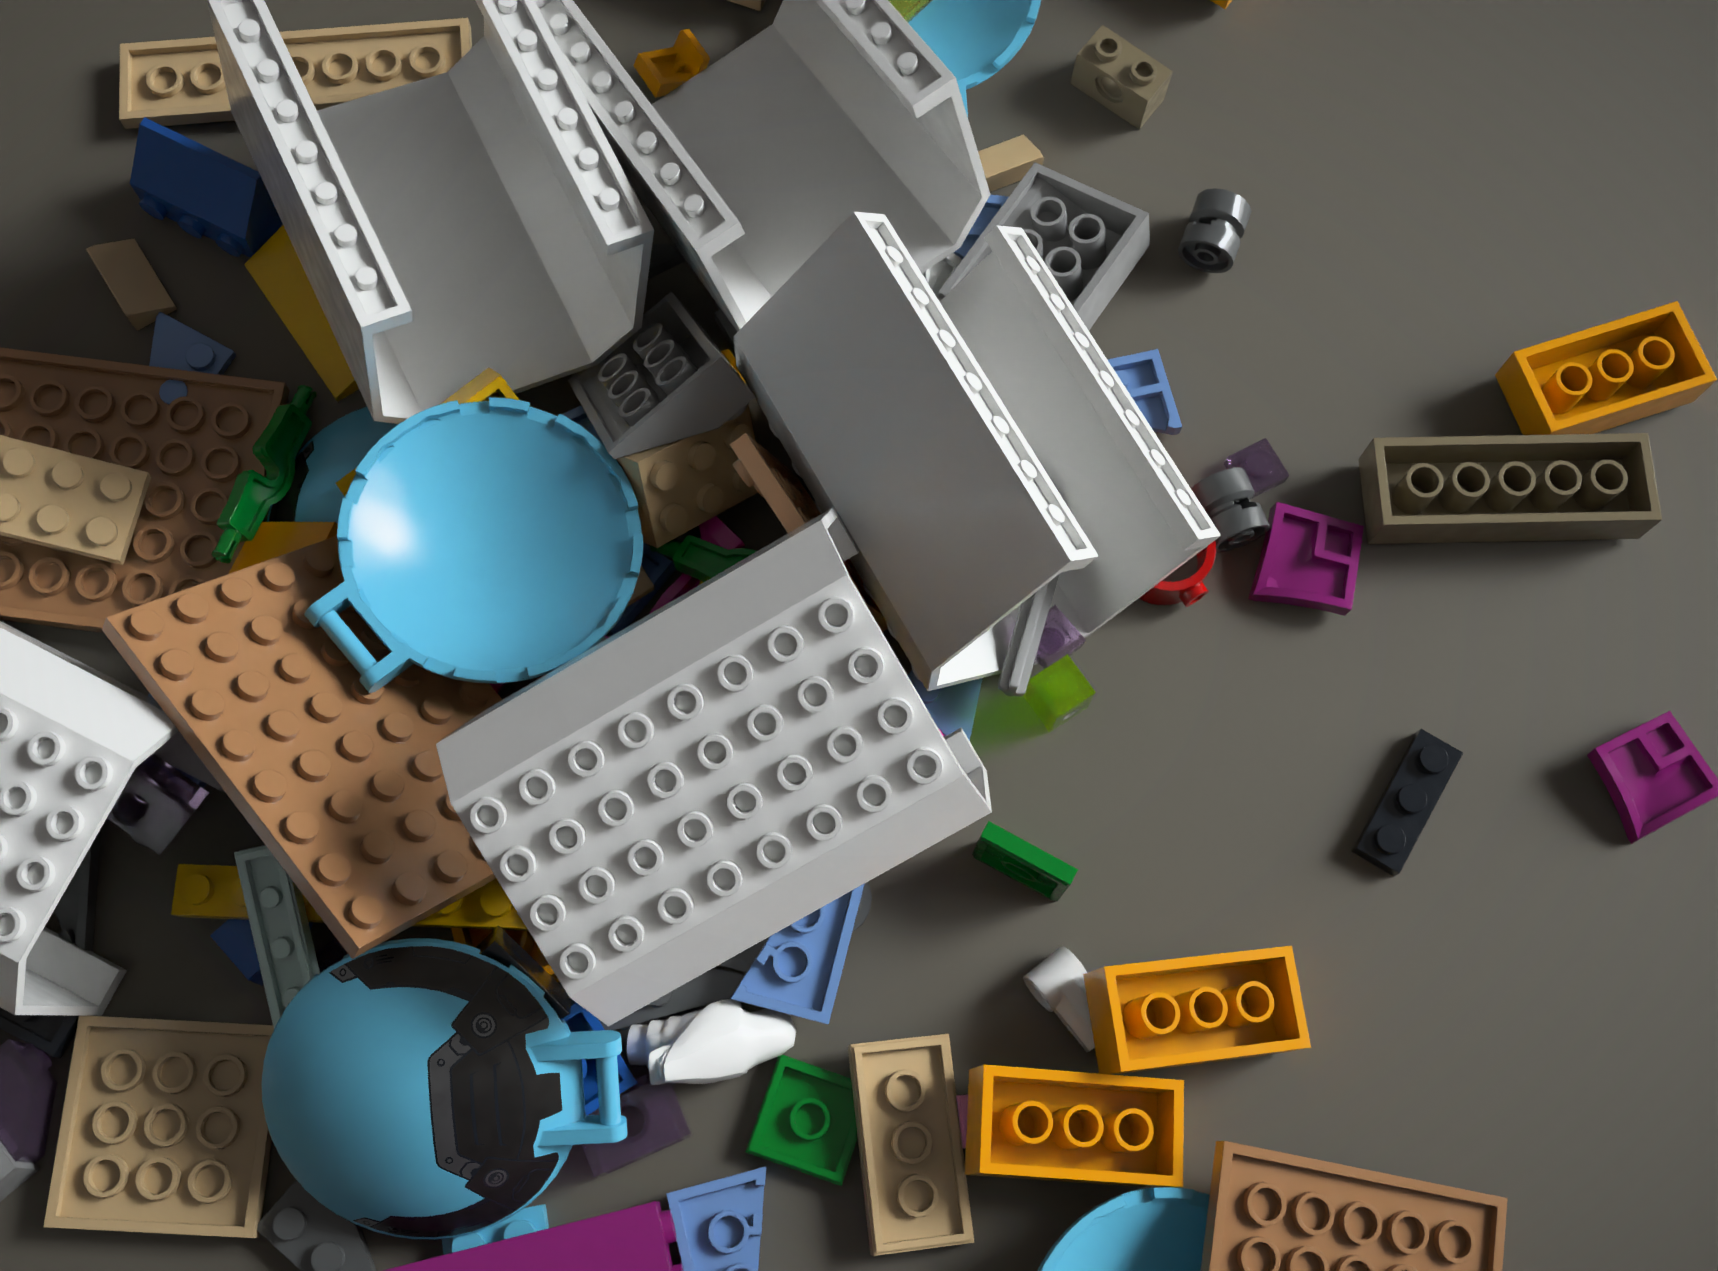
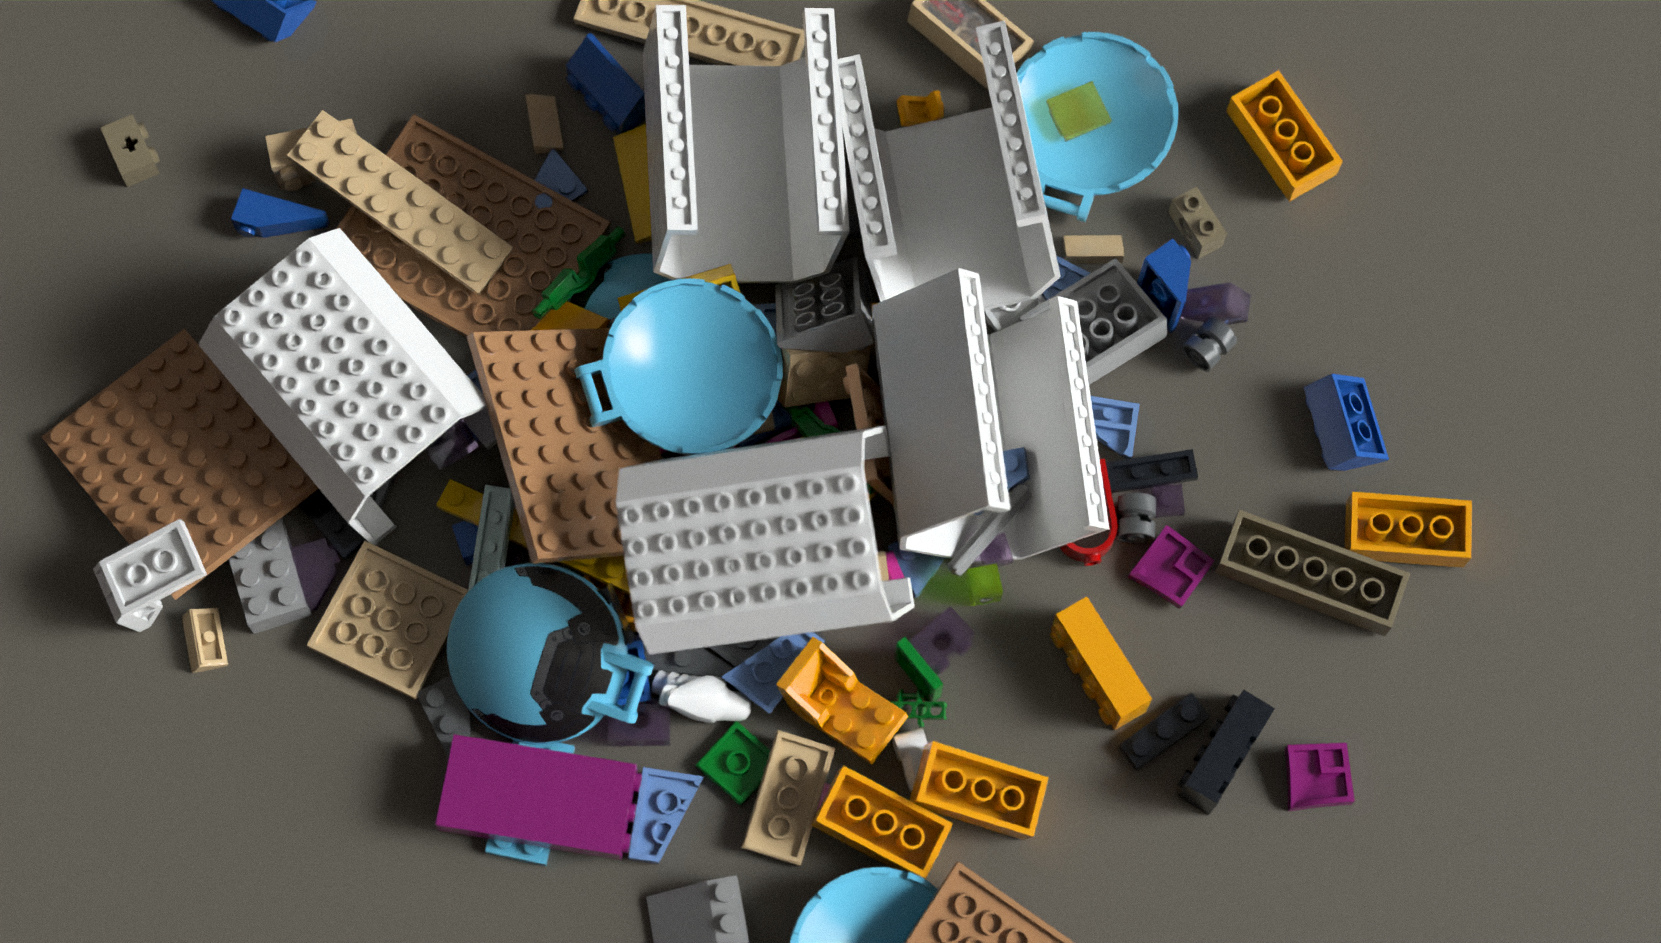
camera: 25 degrees right, 0 degrees up
(929, 964) = (835, 702): none -> light orange bracket
(1014, 927) = (922, 713): none -> green piece
(1044, 779) = (948, 627): none -> clear purple brick
(1130, 155) = (1166, 280): none -> blue slope
(1199, 166) = (1220, 301): none -> clear purple slope
(1225, 431) = (1152, 471): none -> black plate
(1284, 742) = (1100, 664): none -> light orange brick
(1442, 268) = (1345, 422): none -> blue slope
(1514, 798) = (1225, 752): none -> black wedge

